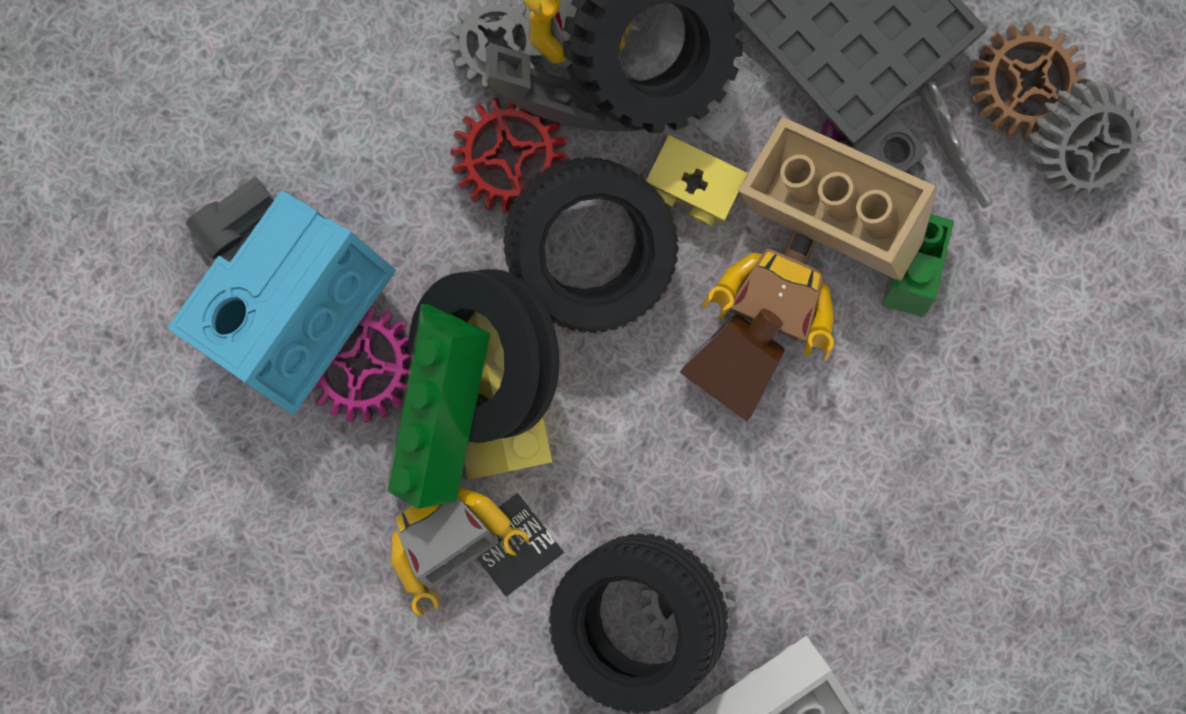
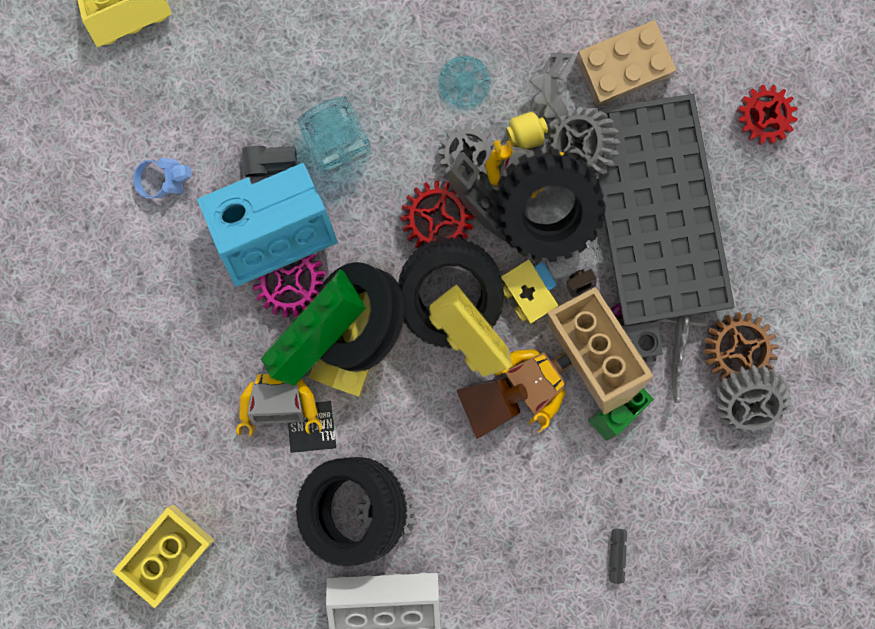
camera: 30 degrees right, 0 degrees up
(115, 315) = (174, 177): none -> light blue piece
(299, 126) = (333, 133): none -> clear light blue piece
(651, 281) = (470, 333): none -> light yellow slope
(705, 143) = (545, 275): none -> dark azure tile
(757, 122) = (581, 281): none -> dark brown plate
(1035, 462) = (618, 556): none -> dark grey axle

